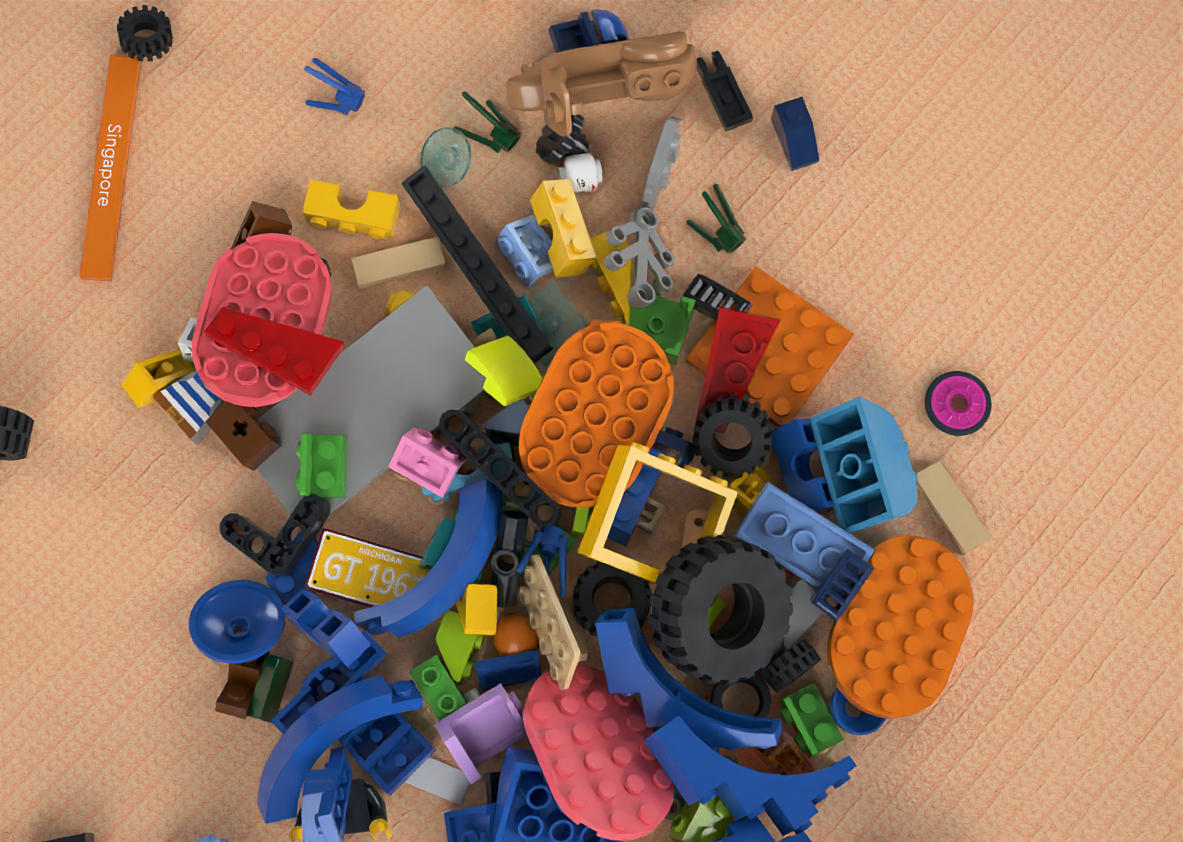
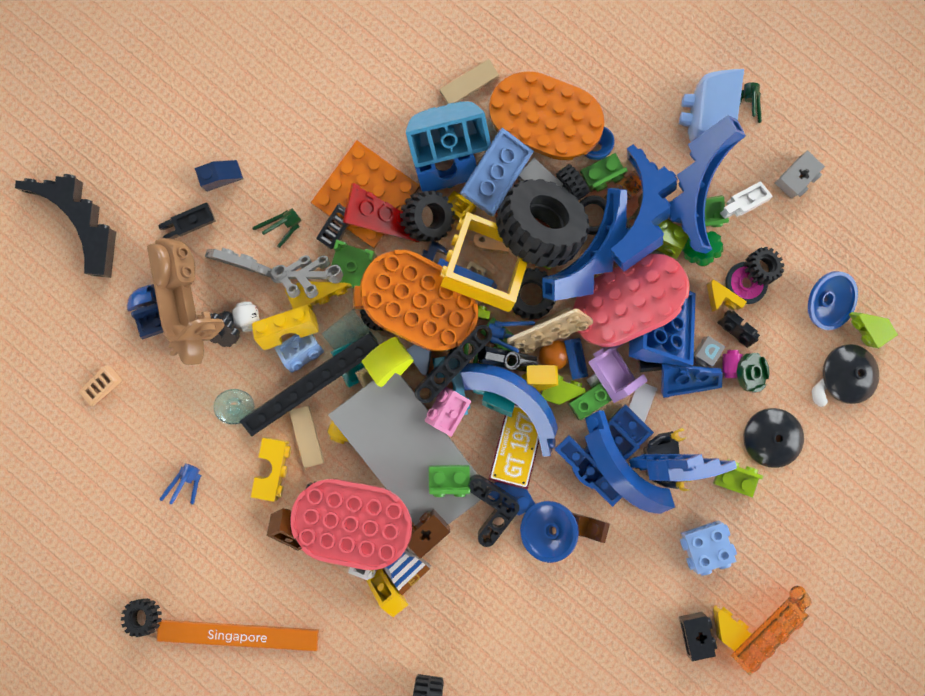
camera: 85 degrees left, 10 degrees up
(270, 688) = (590, 509): dark green slope -> none
(282, 350) = (374, 509): red wing -> none
(325, 628) = (554, 473): blue arch -> none
(504, 133) = (216, 367): dark green plant -> none
(851, 591) = (534, 147): dark blue slope -> none
(952, 421) = (402, 64): dark pink wheel -> none

